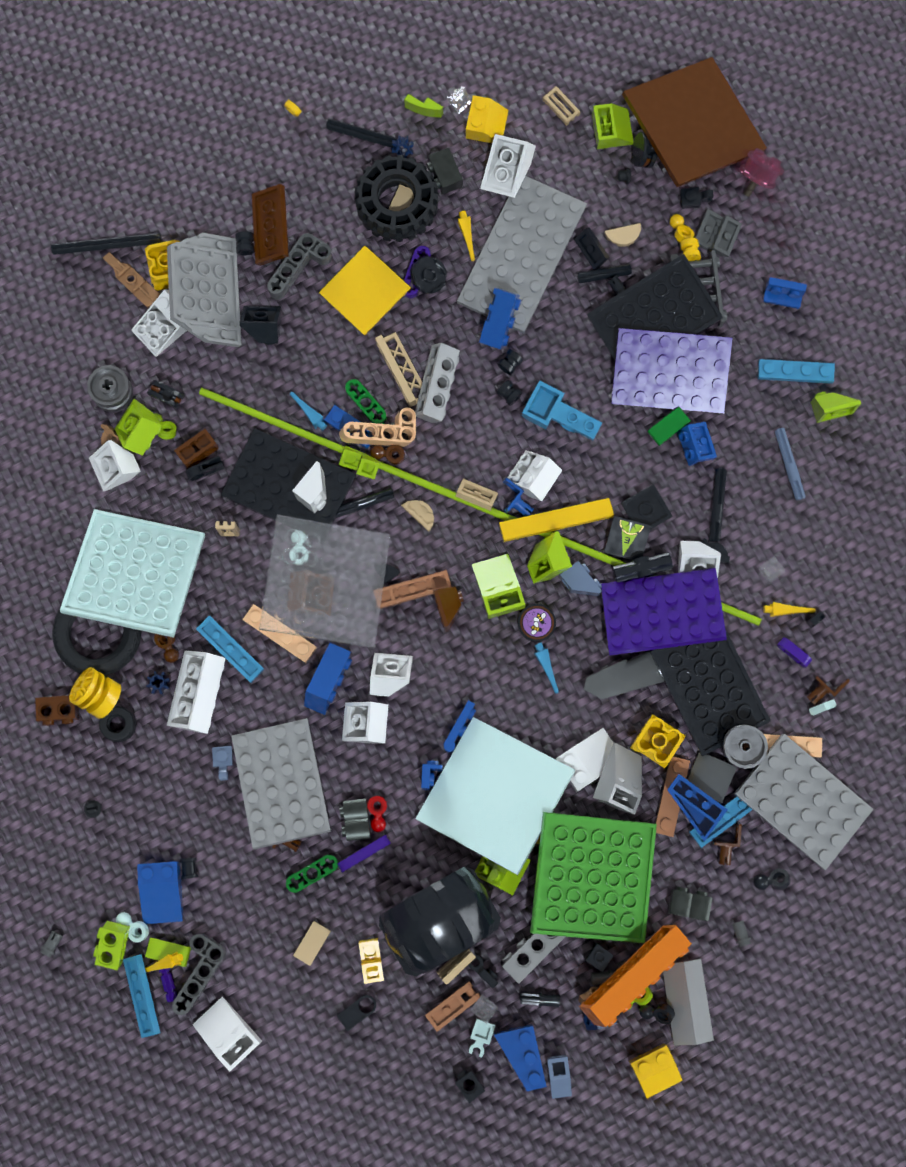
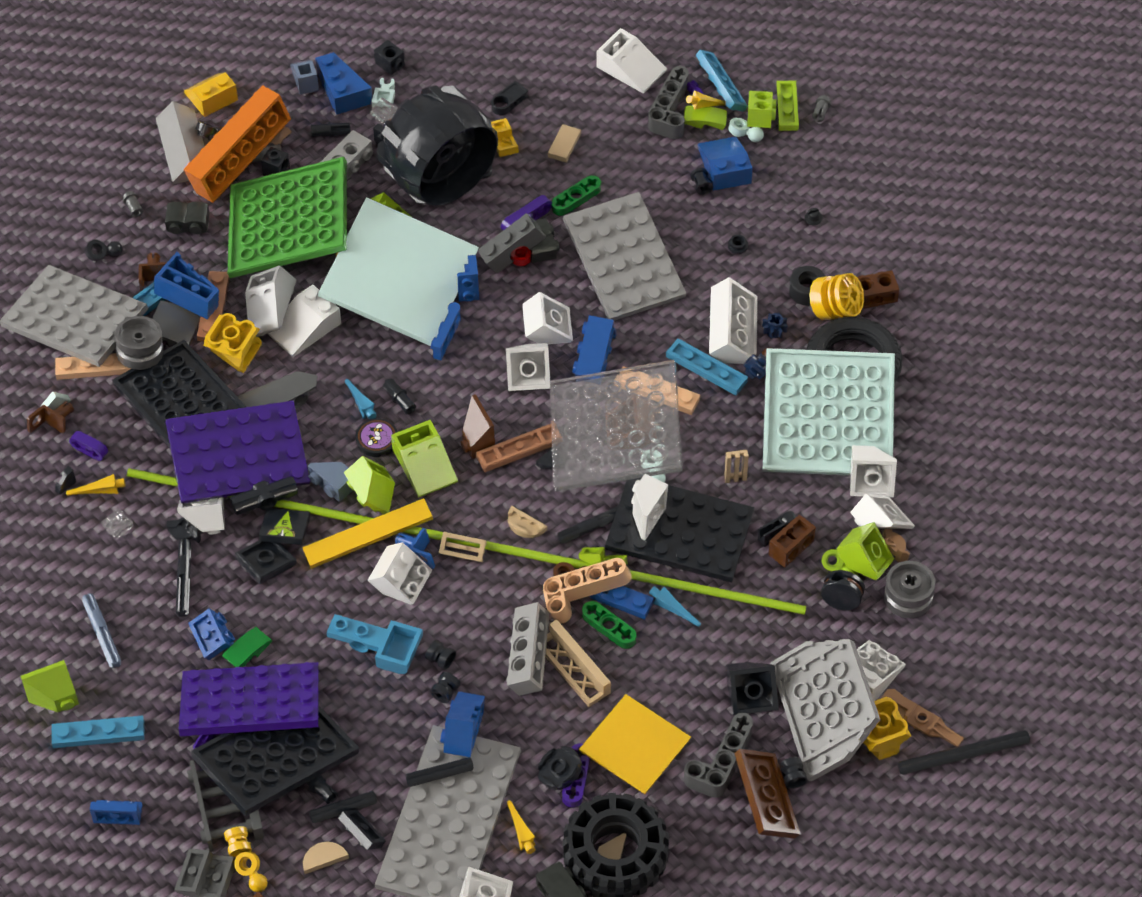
camera: 170 degrees right, 25 degrees down
(83, 953) = (787, 106): none -> lime plate
(112, 507) = (872, 472): none -> white slope
(165, 784) = (740, 241): none -> black plate
(185, 638) = (755, 366): none -> dark blue gear
(222, 758) = (689, 274): sand blue plate -> none
(384, 808) = (520, 233): none -> dark grey arch
(511, 663) = (399, 396): none -> black axle
(526, 281) = (439, 772): none -> black axle

